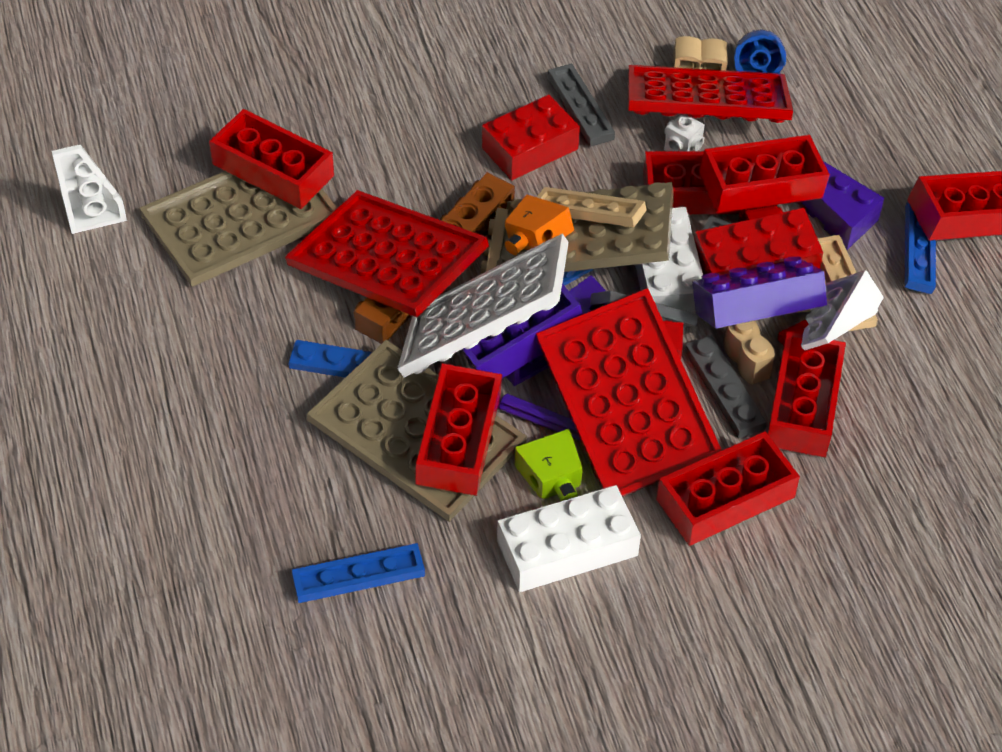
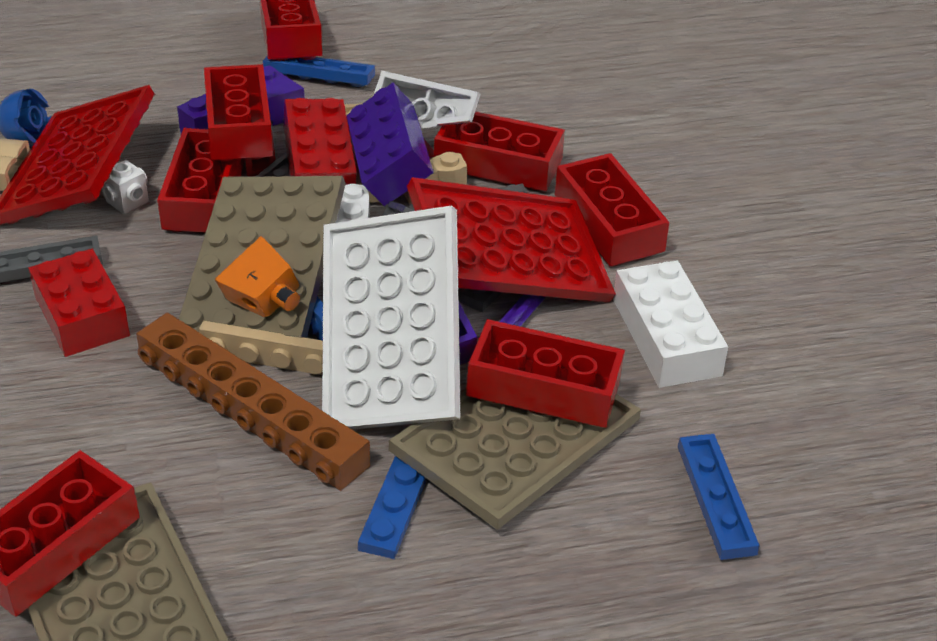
camera: 85 degrees left, 10 degrees down
(387, 252) = (252, 427): red plate -> none
(551, 465) = (575, 319): lime torso -> none
(597, 207) = (256, 221): tan plate -> none

